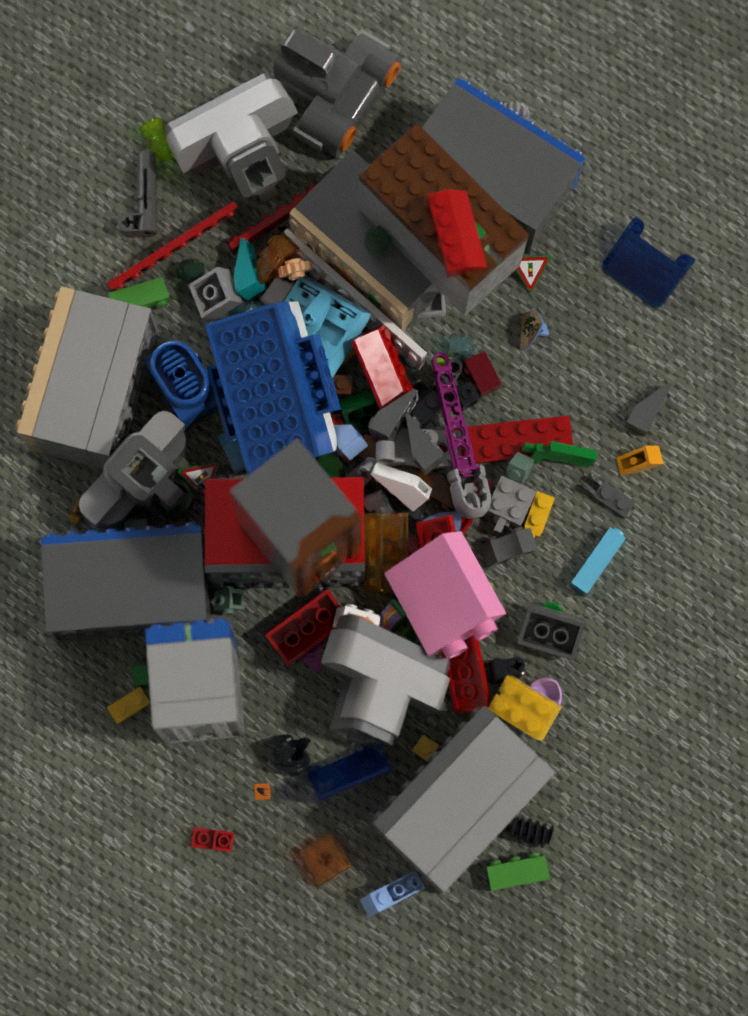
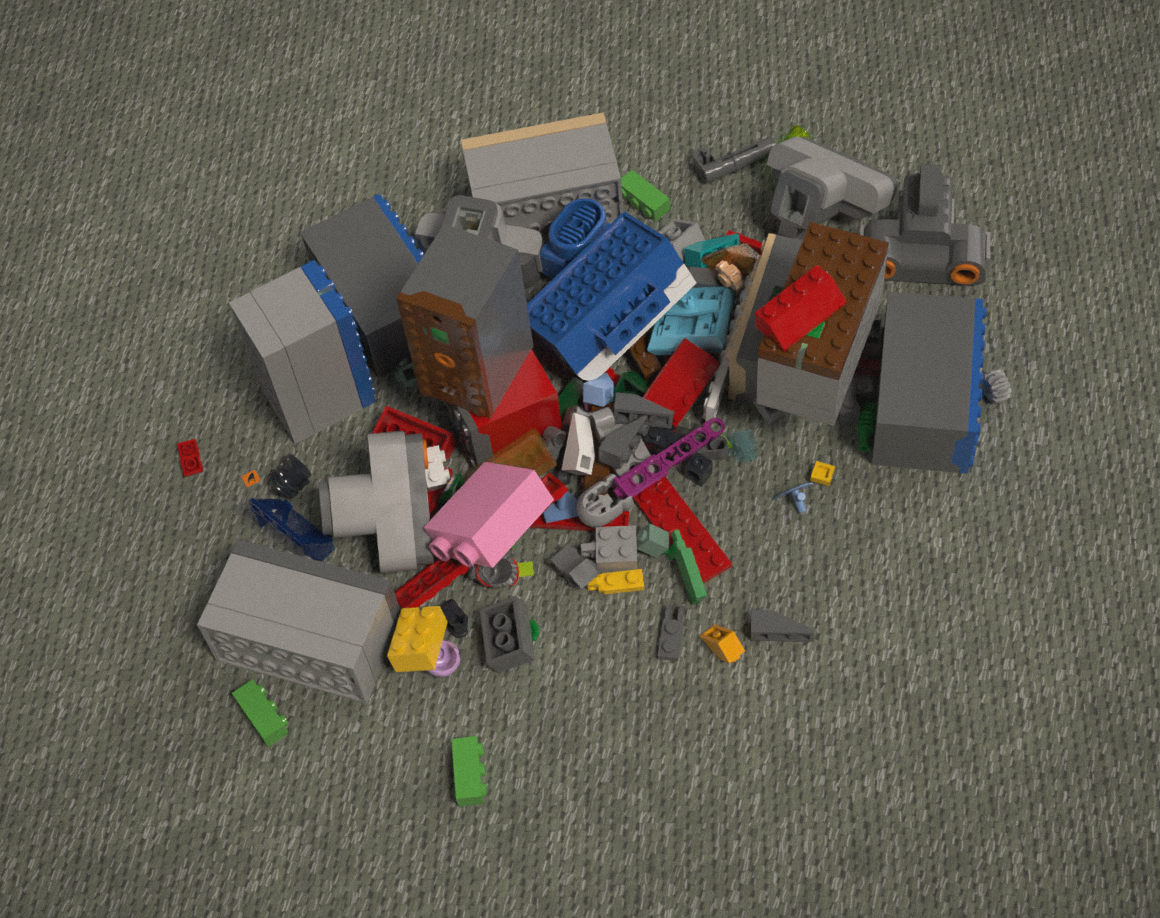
camera: 75 degrees right, 20 degrees down
(177, 243) = (697, 191): red plate -> none
(190, 270) = (690, 214): clear green head -> none
(312, 855) = (197, 551): clear orange brick -> none
(392, 893) = (187, 609): light blue slope -> none
(481, 374) = (728, 473): dark red brick -> none
(521, 298) = (822, 473): none -> yellow plate
(530, 831) = (305, 705): black piece -> none
(532, 269) = (855, 467): piece -> none
(598, 561) = (600, 649): medium azure brick -> none
(645, 268) = (916, 563): clear blue windscreen -> none
(657, 718) = (468, 771): none -> bright green brick

